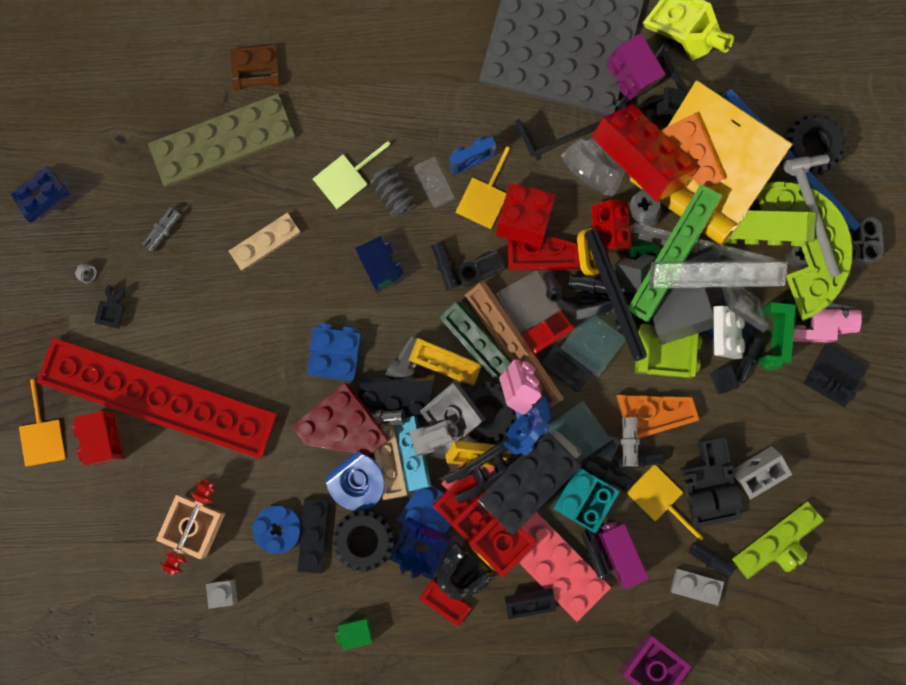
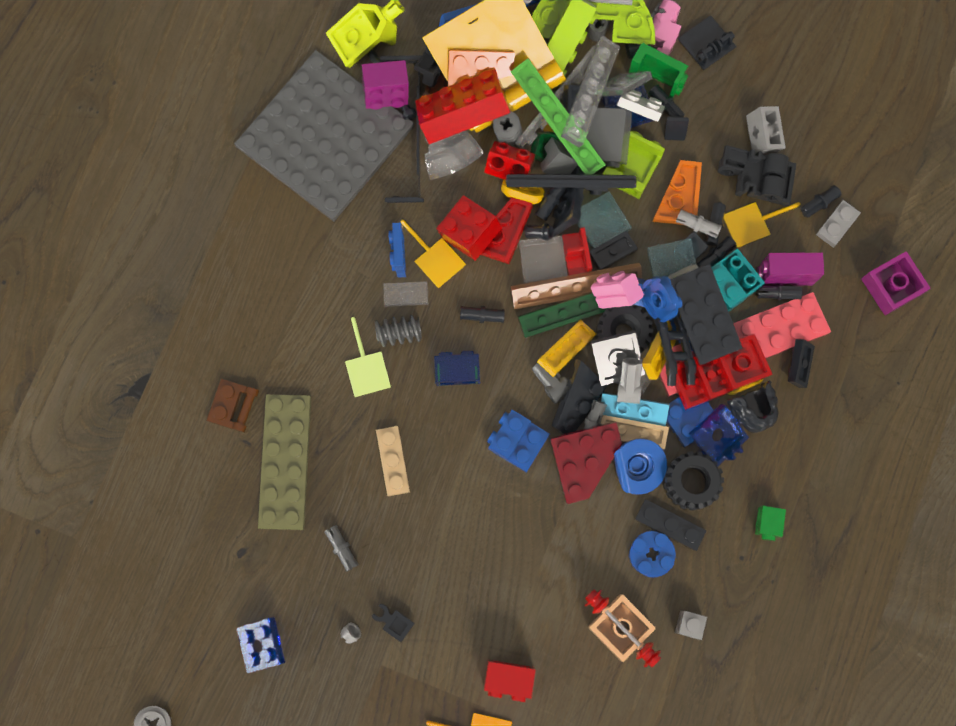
camera: 65 degrees left, 5 degrees down
(157, 398) = (491, 615): red plate -> none
(449, 608) = (773, 436): red tile -> none
(482, 268) = (498, 285): black piece -> none
(780, 543) = (829, 142): lime plate -> none

